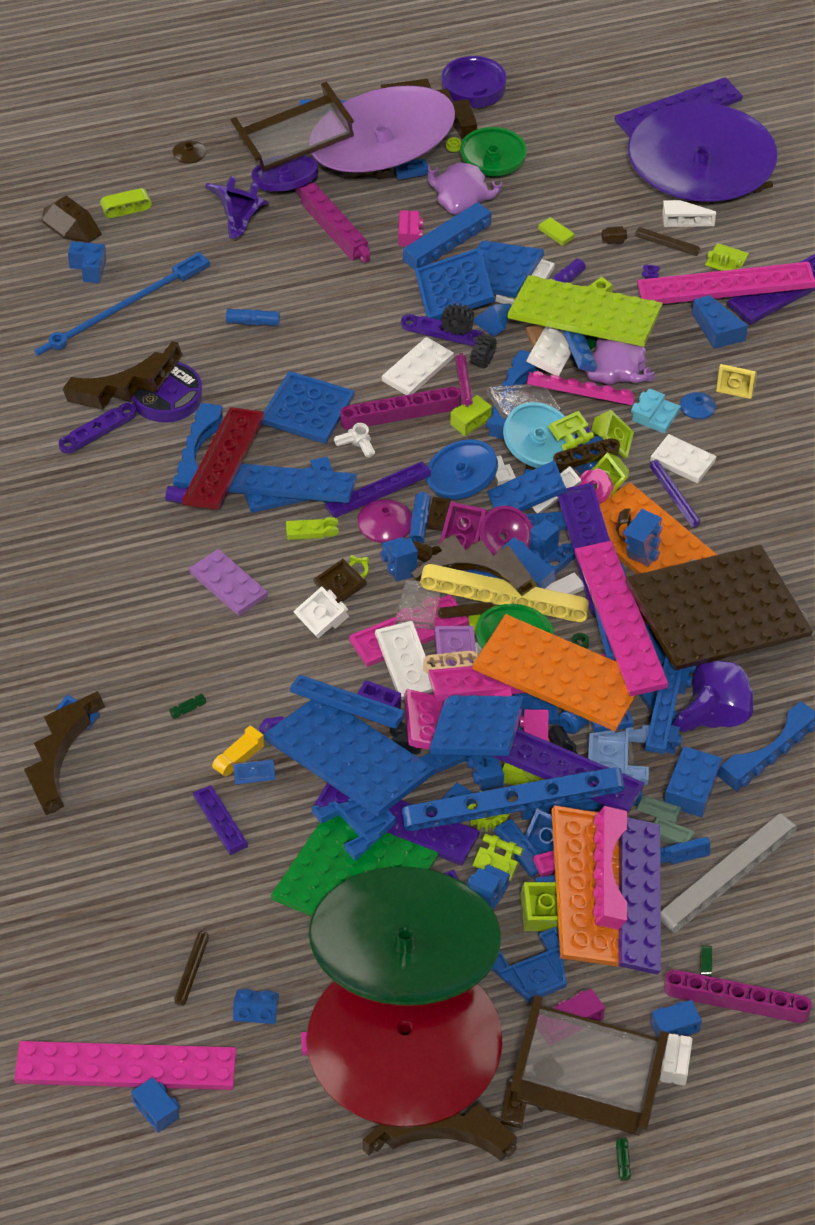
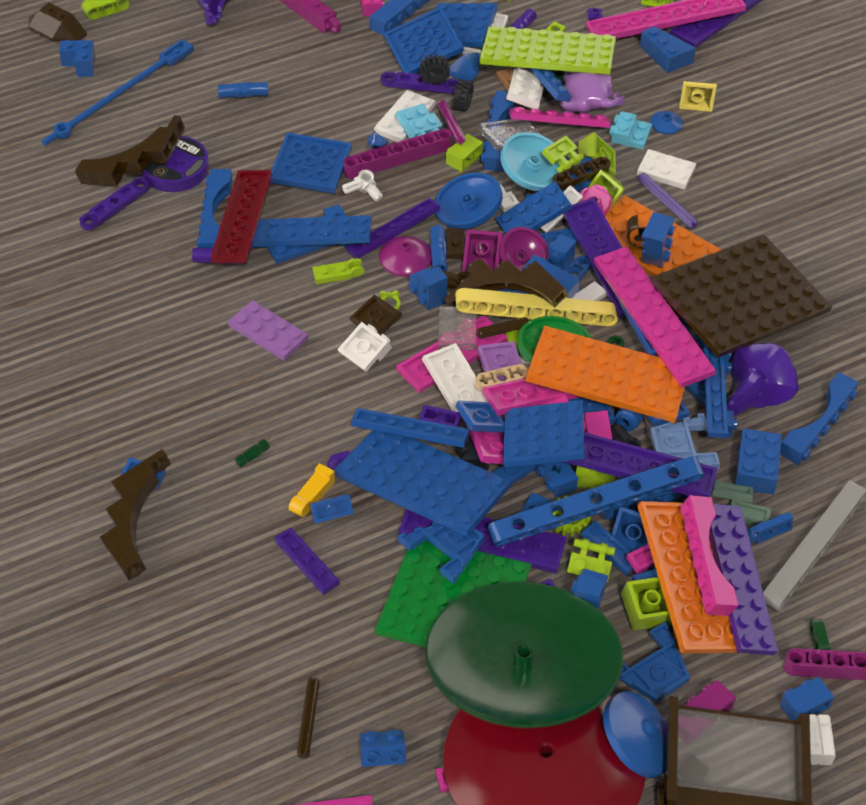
camera: 10 degrees left, 0 degrees up
(379, 392) = (377, 141): none -> blue hinge
(418, 699) = (480, 416): none -> blue plate
(429, 374) = (418, 120): none -> medium azure plate
(496, 1025) = (637, 734): none -> blue dish

